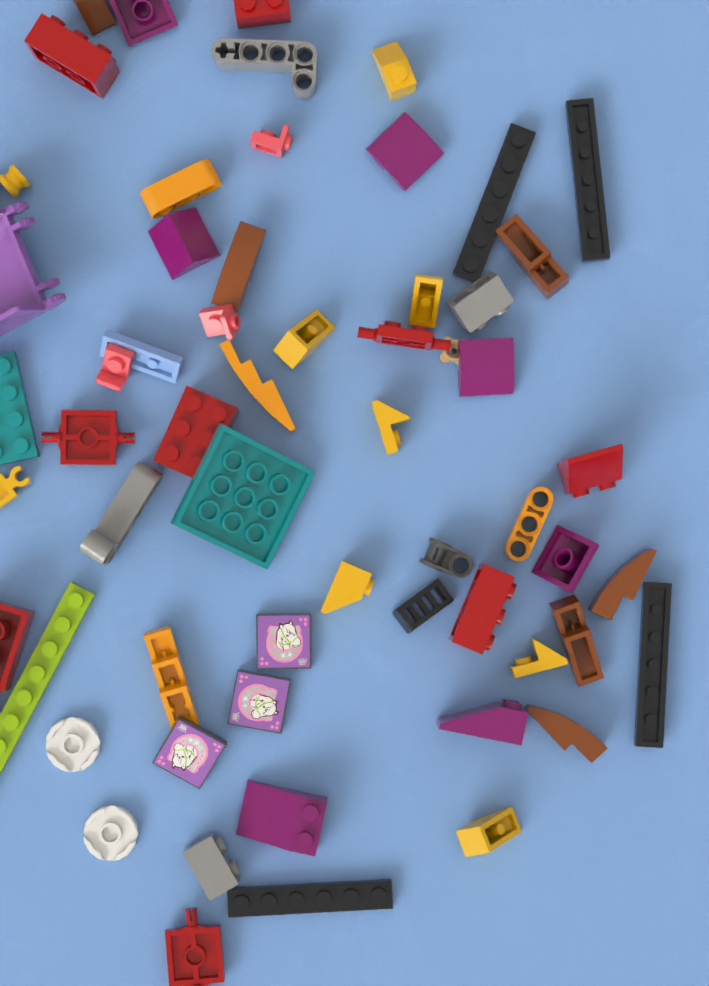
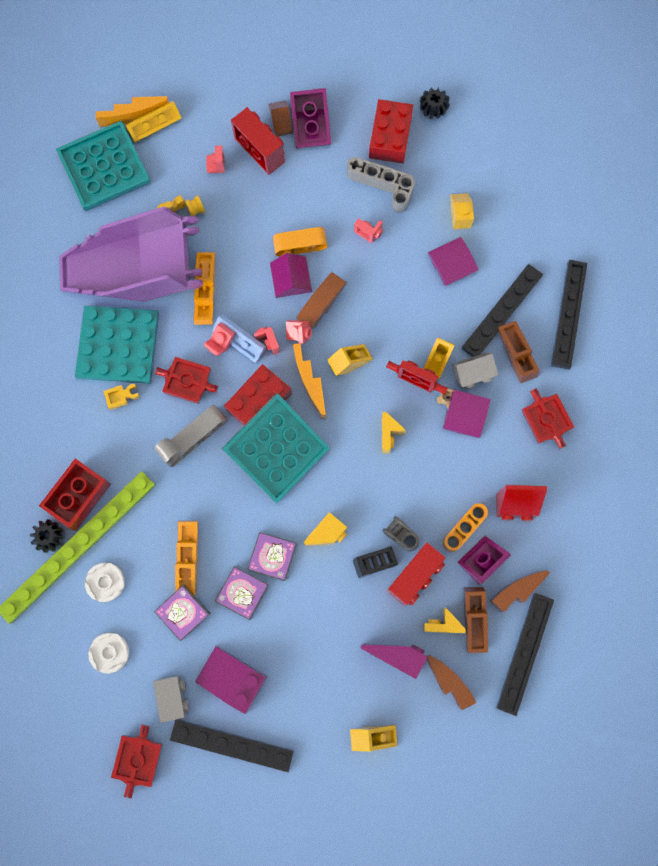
camera: 20 degrees right, 10 degrees down
(21, 104) = (216, 162): none -> coral bracket
(73, 311) = (205, 295): none -> light orange slope
(186, 348) = (270, 342): none -> coral bracket
(598, 339) = (548, 418): none -> red plate

